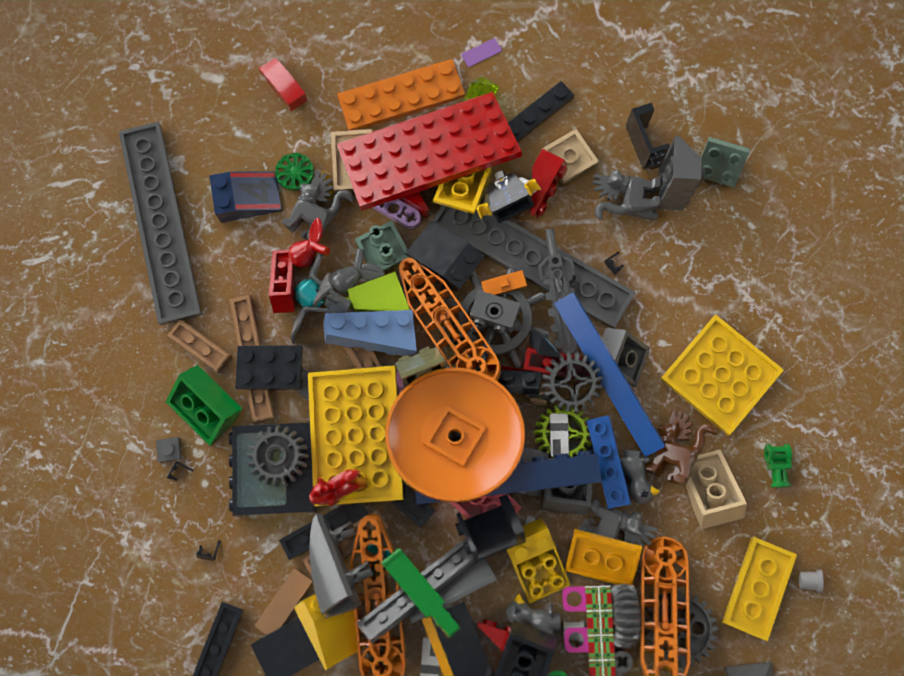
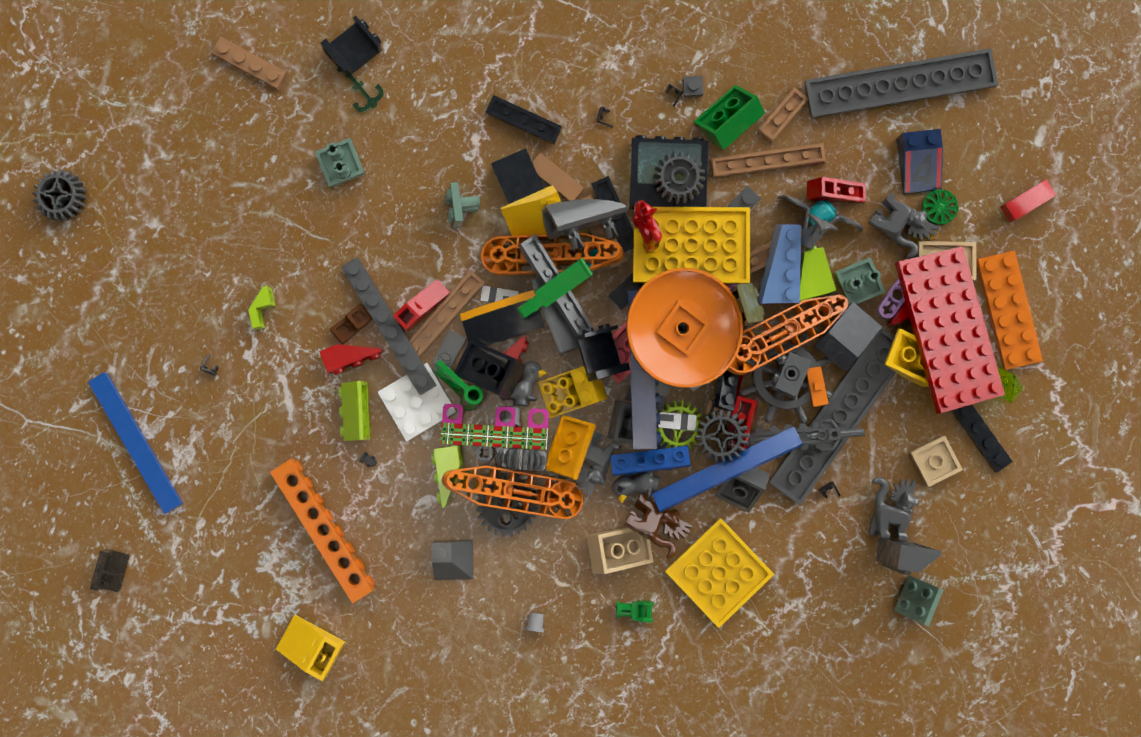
camera: 90 degrees right, 10 degrees up
(269, 367) = (757, 174): black plate -> none
(304, 252) = (861, 211): red piece -> none
(348, 277) = (835, 250): dark grey piece -> none
(481, 52) = (1048, 390): medium lavender sticker -> none
(507, 196) = (899, 397): torso -> none
(542, 345) = (757, 414): black slope -> none
(547, 172) = (915, 434): red slope -> none
(636, 124) = (966, 527): black panel -> none
(759, 588) = (533, 577): yellow plate -> none

